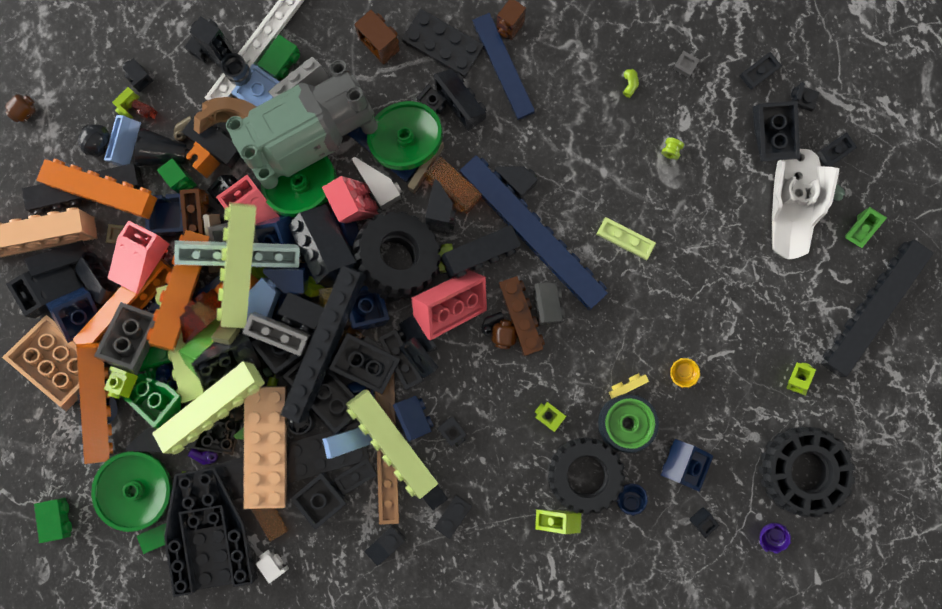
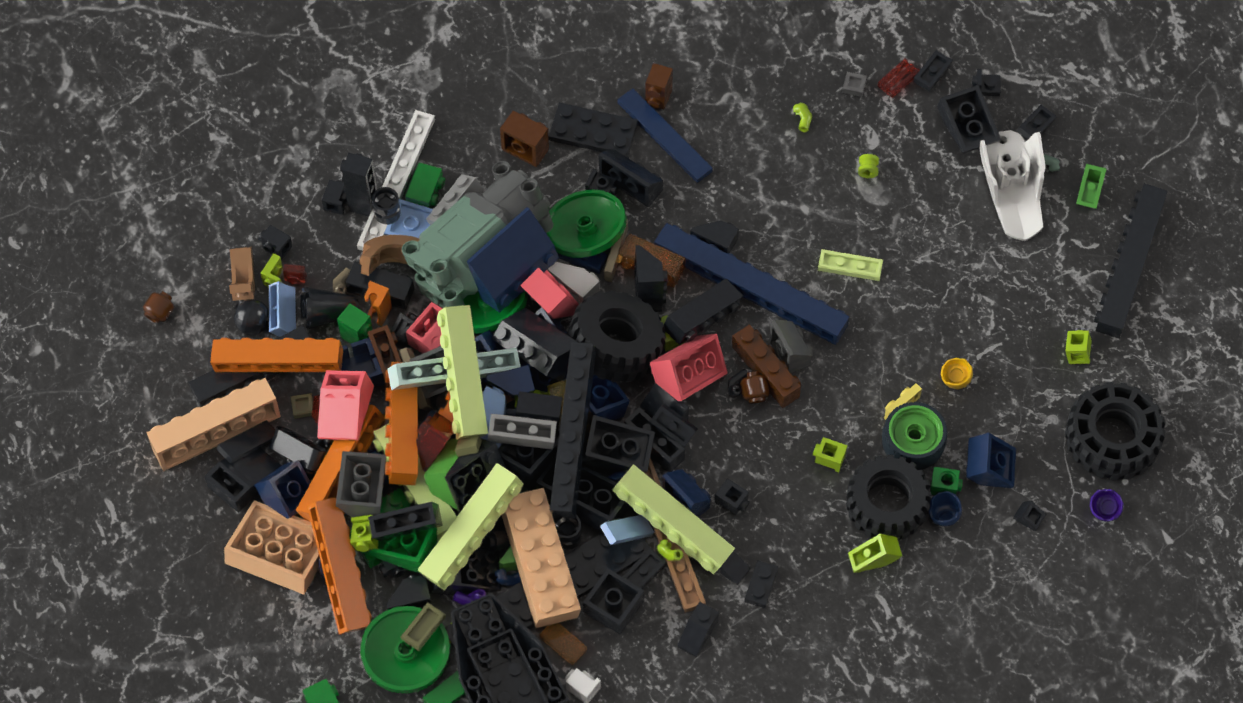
camera: 20 degrees left, 20 degrees down
(99, 100) = (242, 273): none -> medium nougat arch
(150, 389) = (405, 521): none -> black brick
(150, 478) = (423, 626): none -> olive tile
(234, 447) = (508, 580): none -> dark blue arm
(321, 159) = (511, 259): none -> dark blue slope
(379, 471) = (667, 553): none -> lime arm
(632, 473) = (944, 474): none -> green brick
(741, 61) = (903, 64): none -> clear red tile

